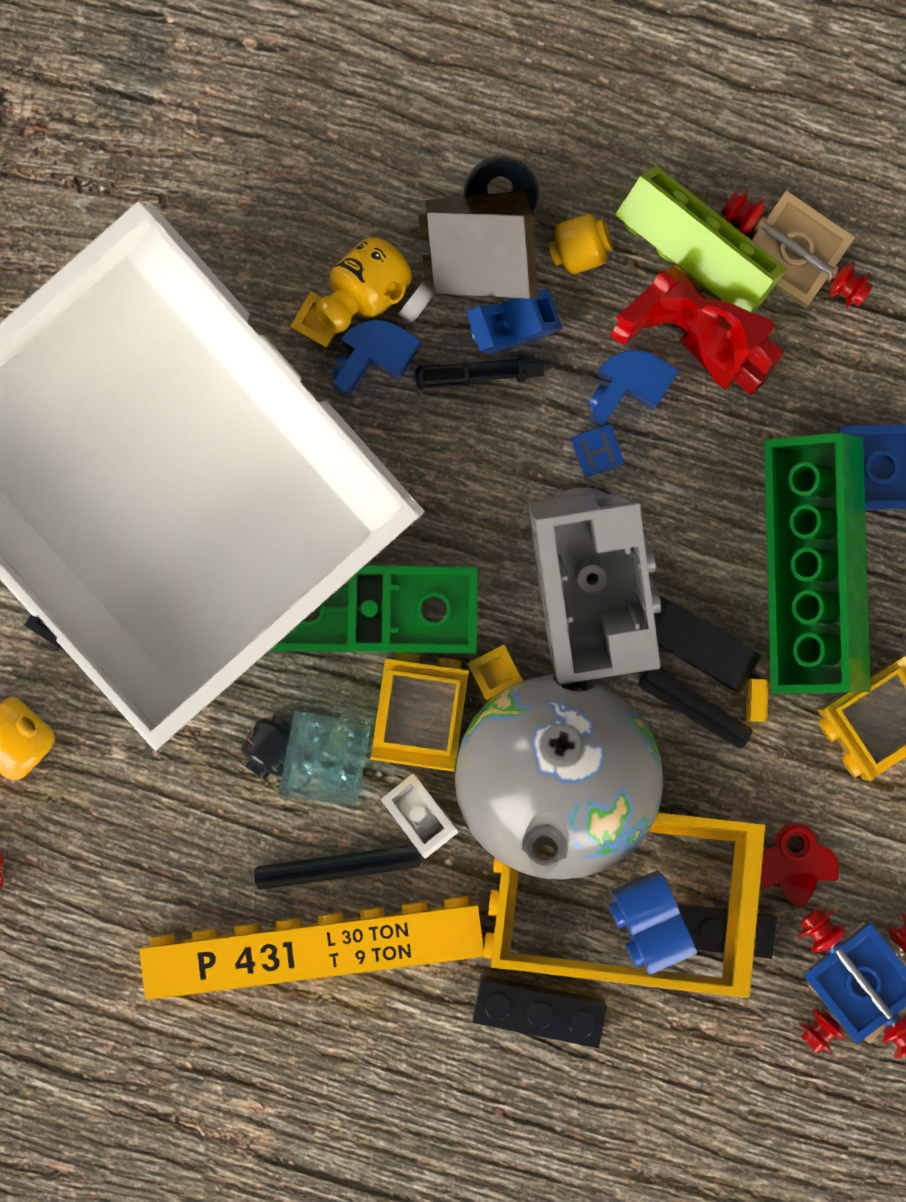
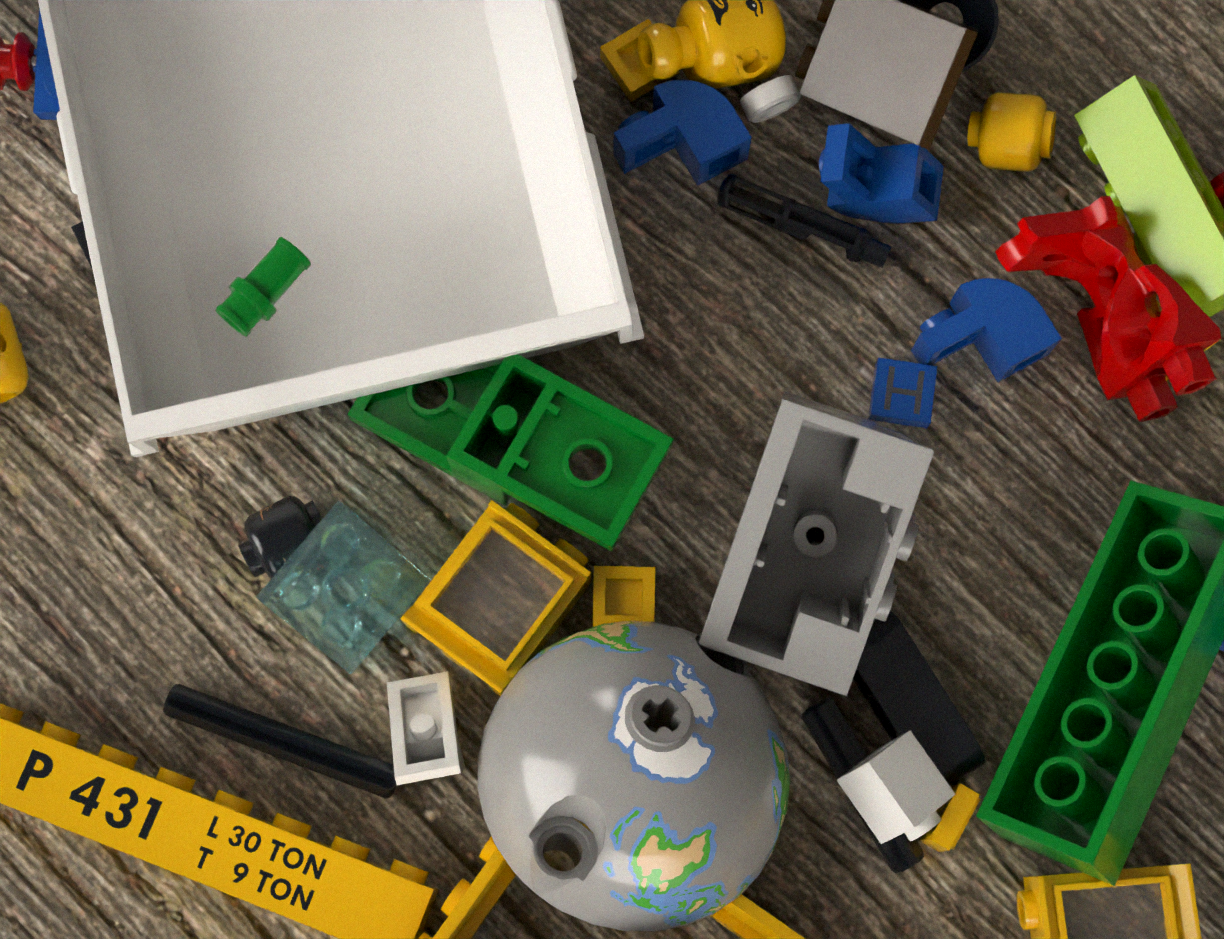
camera: 25 degrees right, 10 degrees down
(187, 615) = (259, 291): none -> green pin
(717, 702) = (897, 789): none -> white brick

